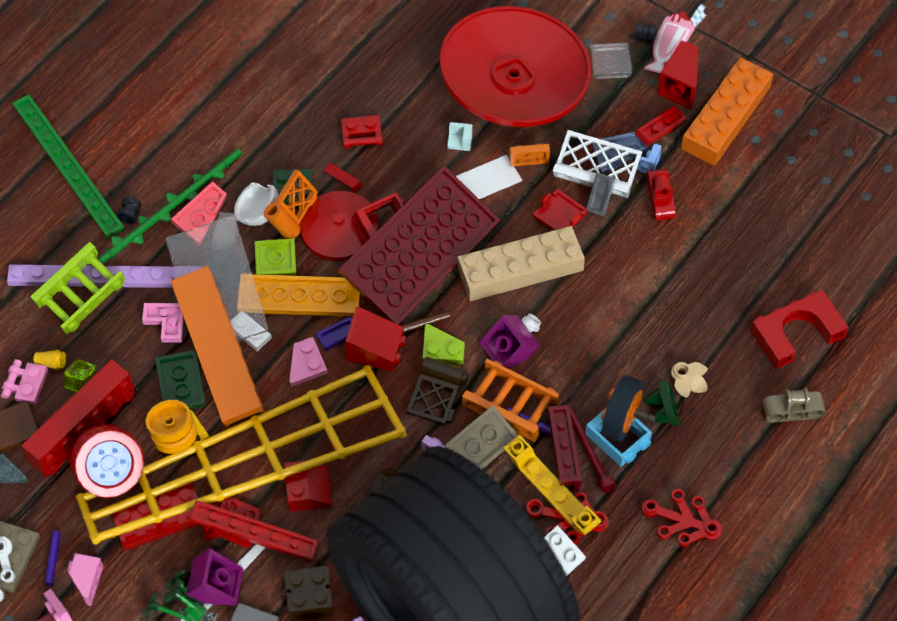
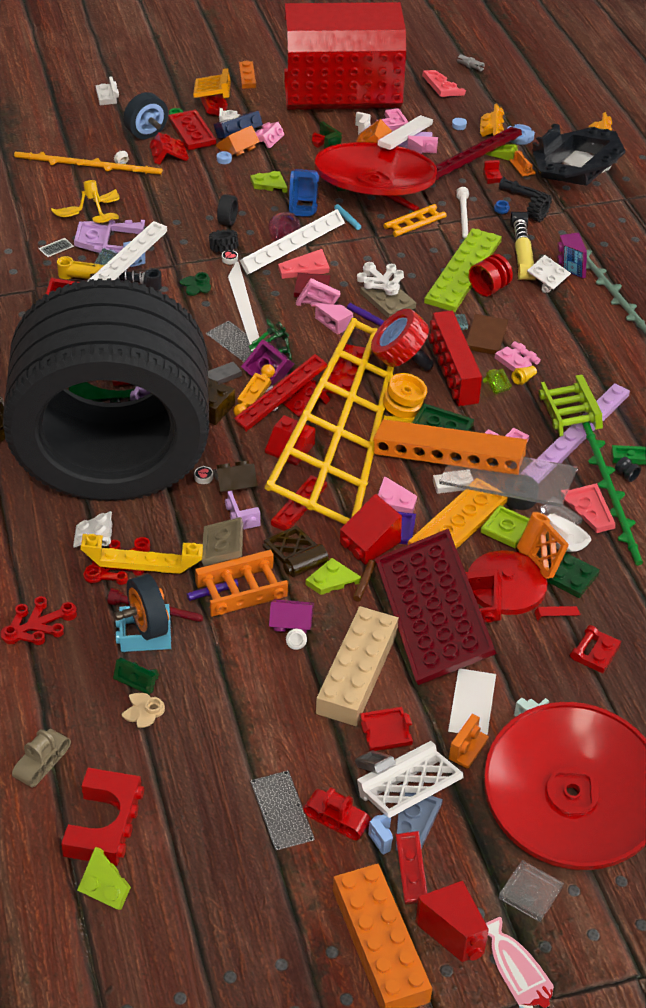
camera: 125 degrees right, 15 degrees down
(261, 565) = (255, 388): none -> light orange plate
(366, 429) = (292, 510): none -> red tile
(564, 446) = (171, 583): dark red fence -> none
(645, 32) = (541, 941): black wheel -> none
(683, 235) = (282, 810): none -> flat silver sticker
(844, 287) = (103, 881): none -> lime wing

